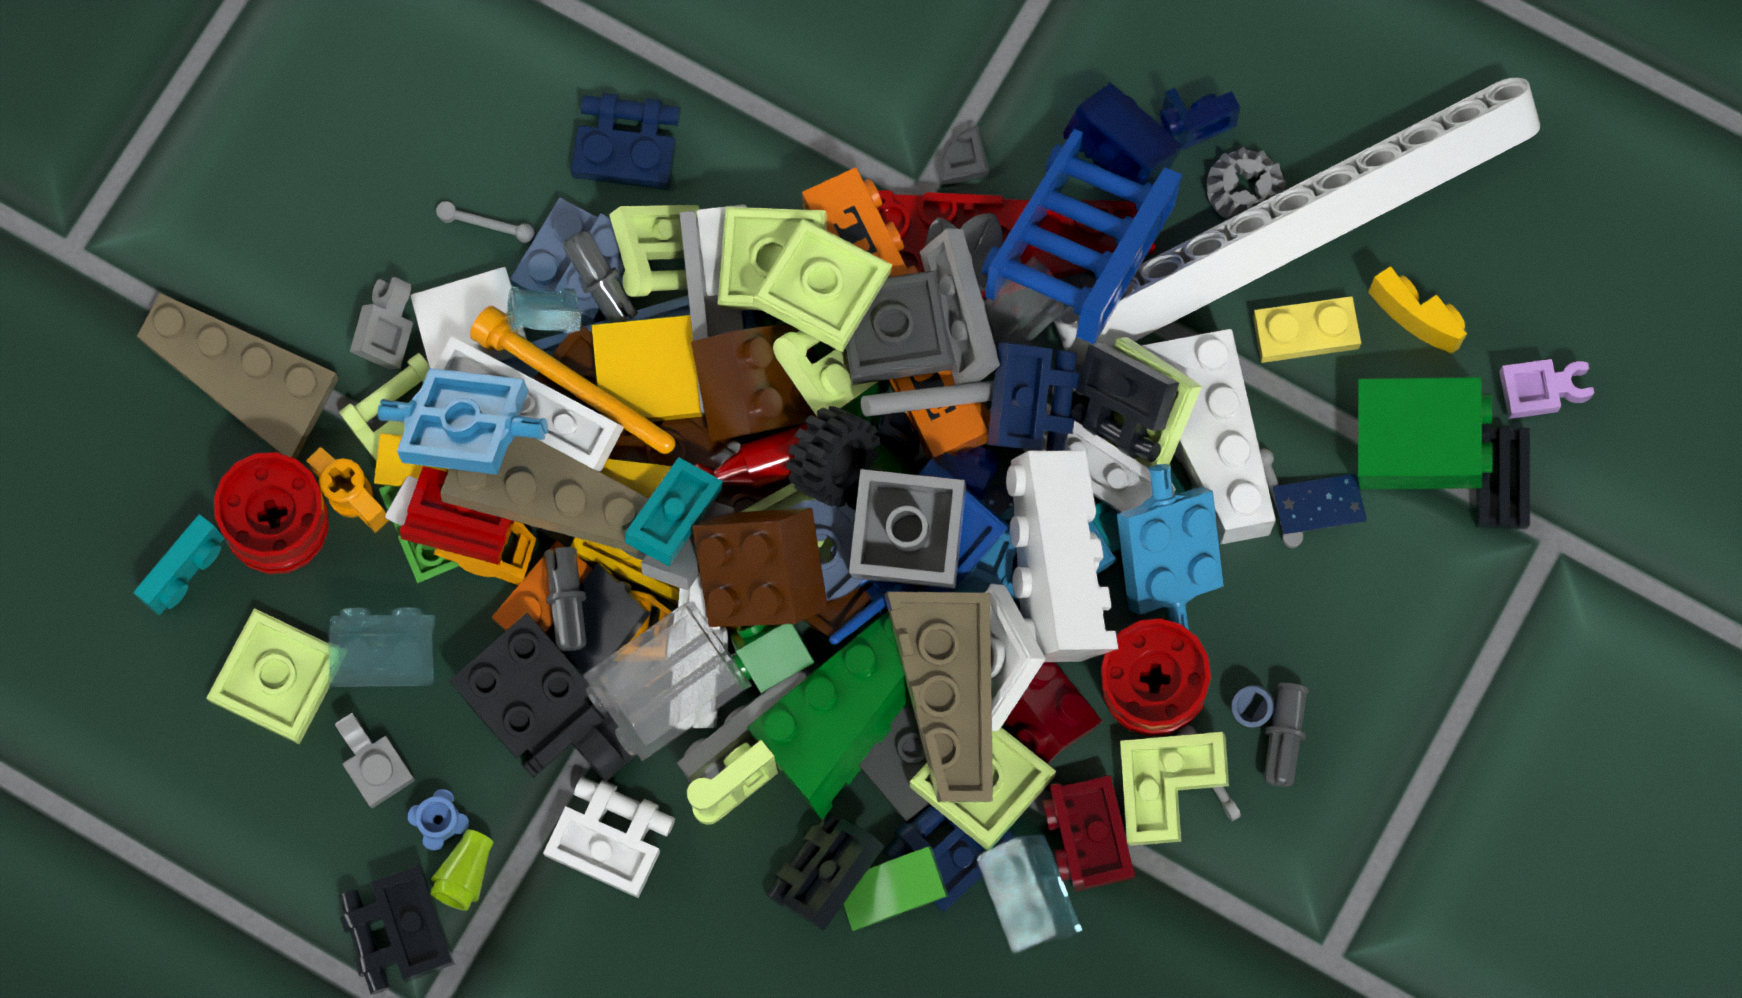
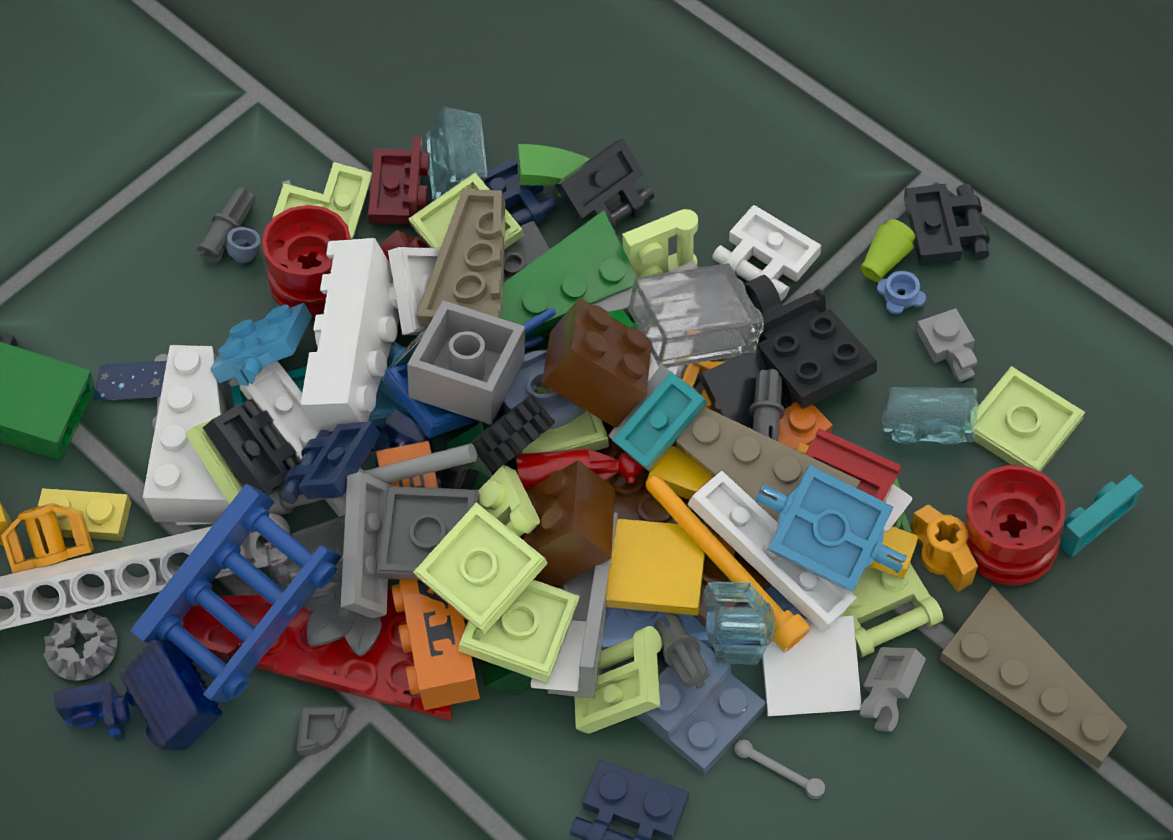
camera: 165 degrees left, 15 degrees down
(983, 560) = (410, 346): none -> black sticker
(1321, 270) = (46, 537): none -> light orange piece

